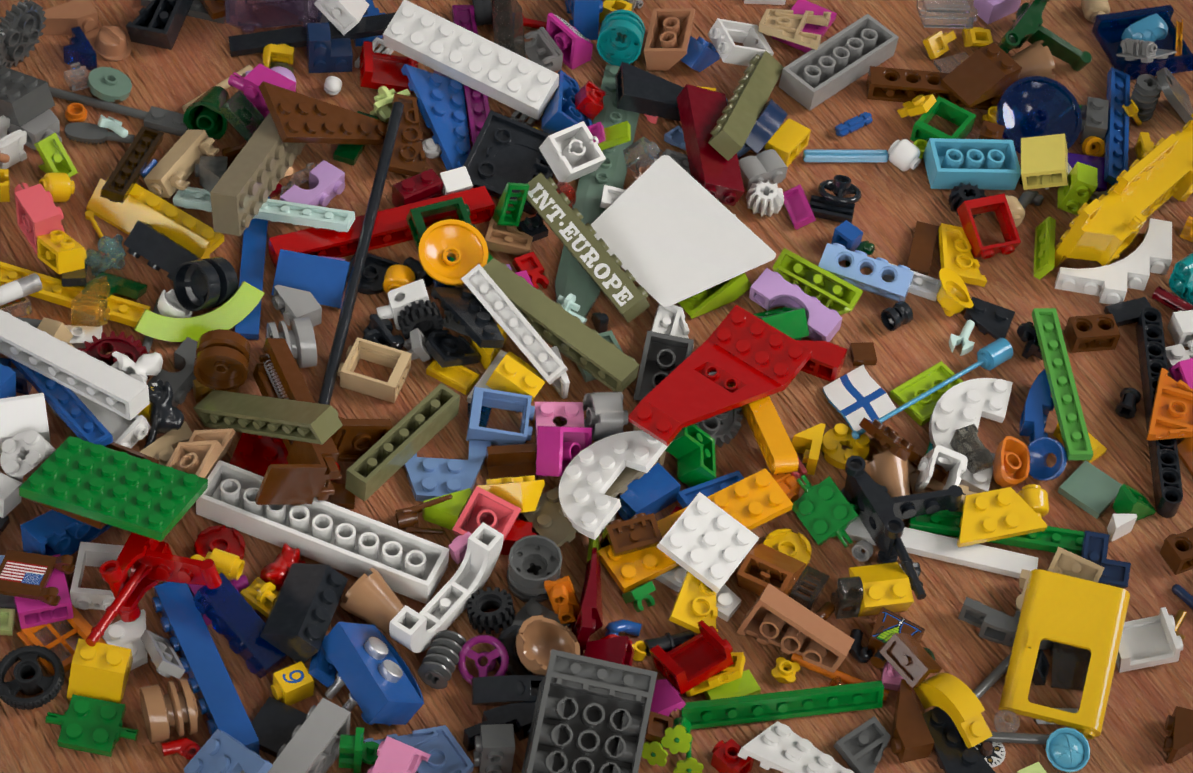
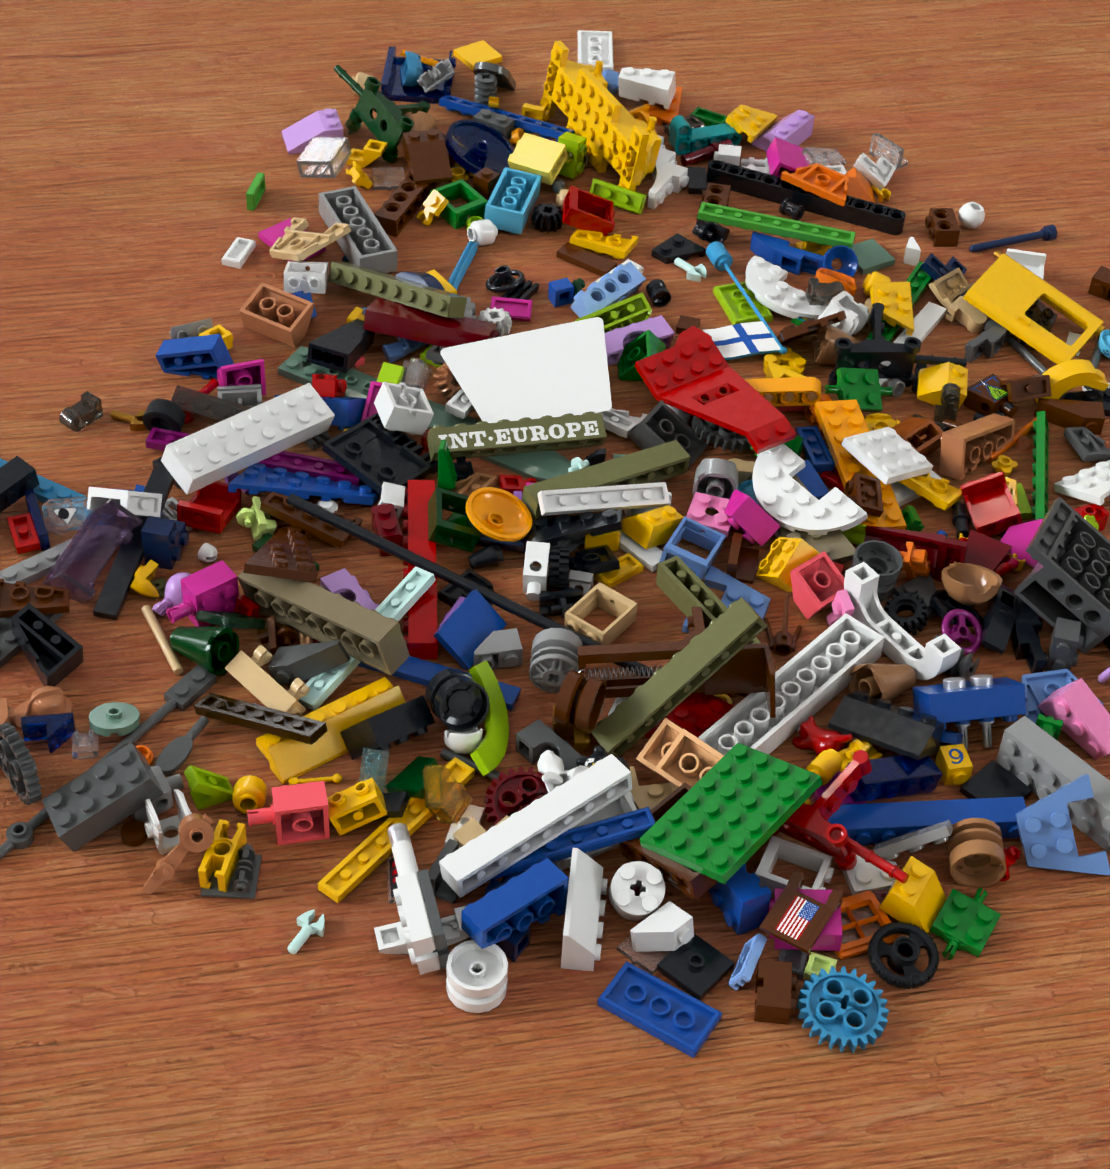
camera: 65 degrees left, 5 degrees down
(113, 124) = (174, 731): light aqua bar -> none
(397, 276) = (497, 571): light orange head -> none
(447, 512) = (777, 609): lime slope -> none
(621, 37) = (263, 340): teal wheel -> none
(853, 124) = (427, 250): blue axle -> none
(890, 677) = (1024, 410): bright pink tile -> none
(953, 293) = (651, 259): yellow piece -> none
(1132, 502) = (893, 240): green slope -> none

